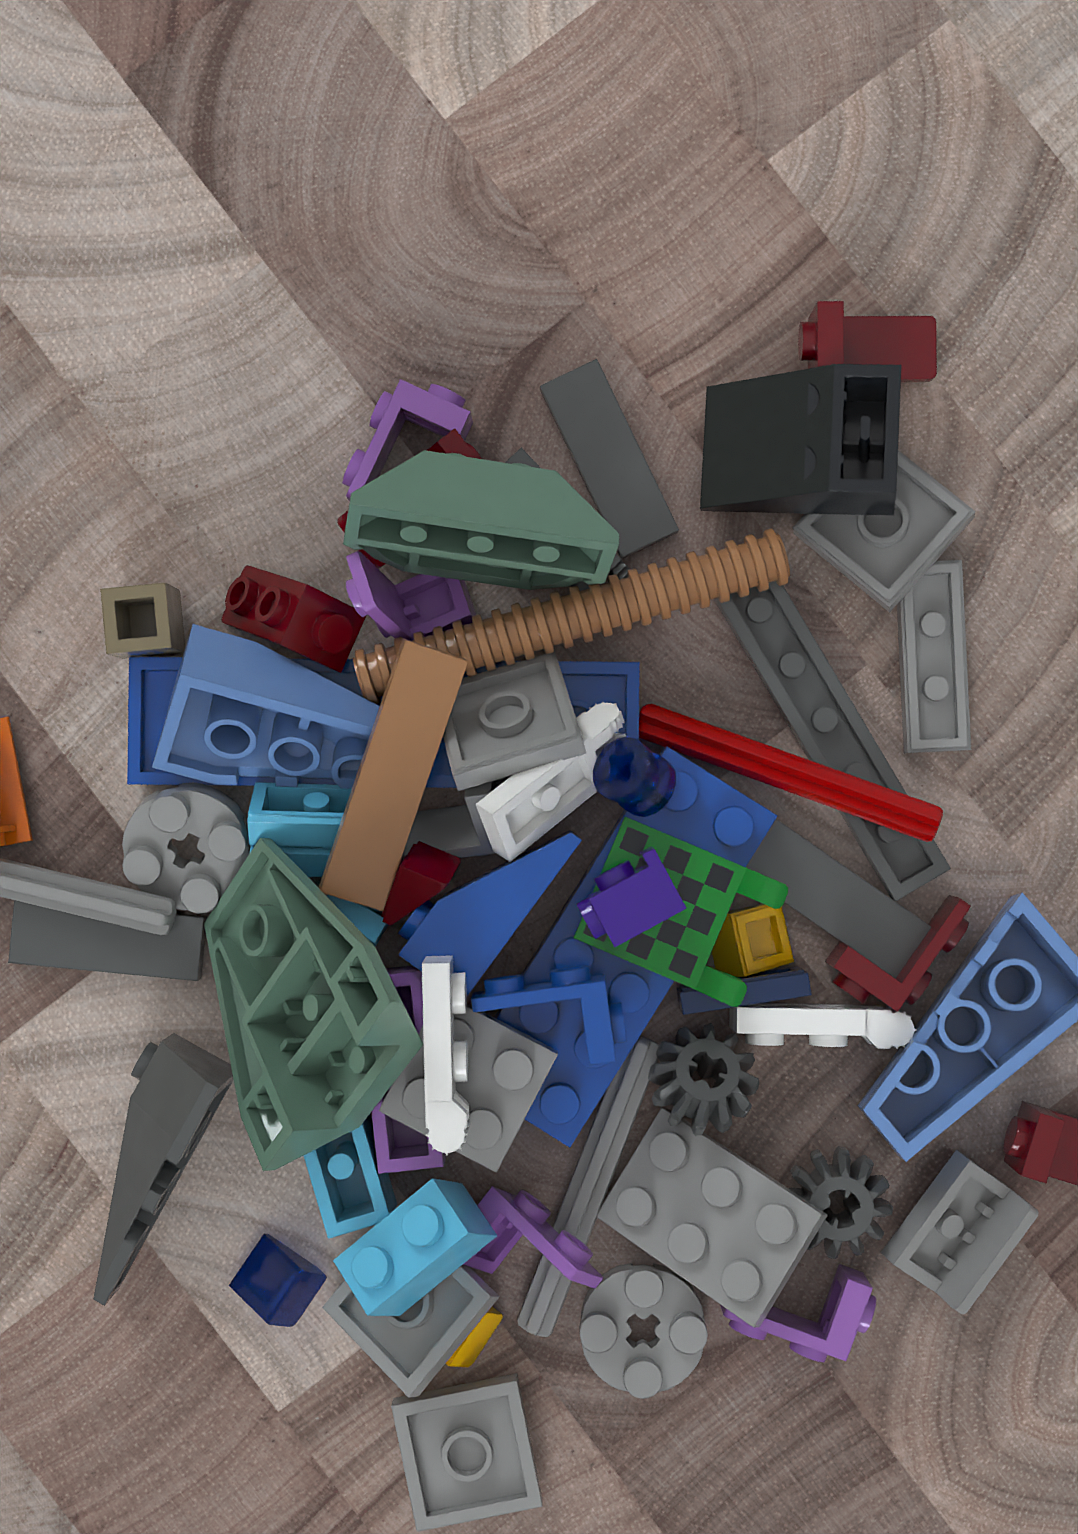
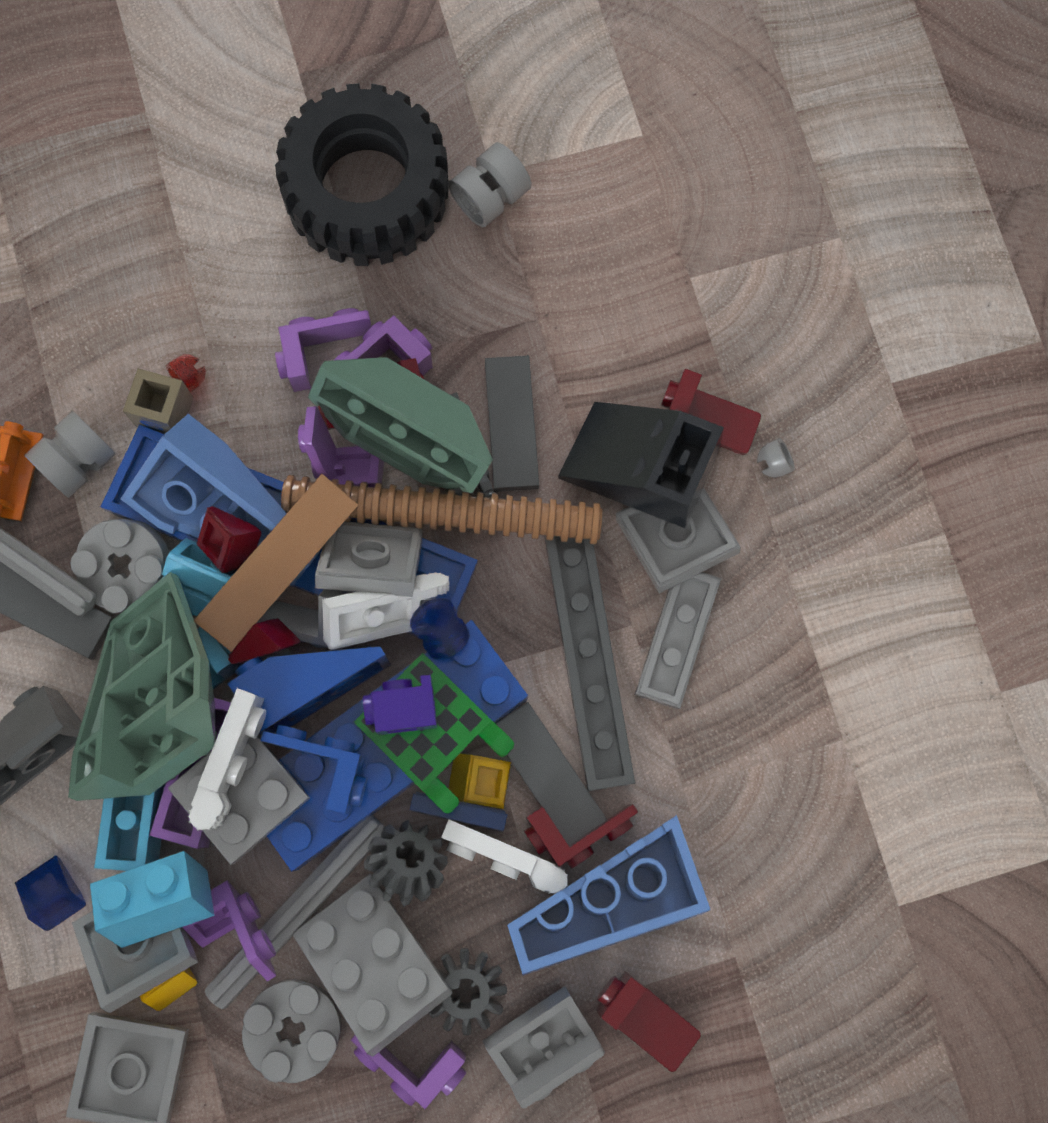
camera: 15 degrees right, 10 degrees down
(58, 732) = (70, 454): none -> light grey wheel
(156, 562) = (183, 369): none -> clear red hinge
(263, 115) = (353, 123): none -> black tyre
(288, 444) = (308, 332): none -> medium lavender bracket
(293, 616) = (260, 440): dark red bracket -> none
(314, 768) = (227, 539): none -> dark red slope
(461, 120) = (495, 180): none -> light grey wheel
(790, 772) = (550, 673): red axle -> none
(978, 369) = (777, 458): none -> light grey hinge

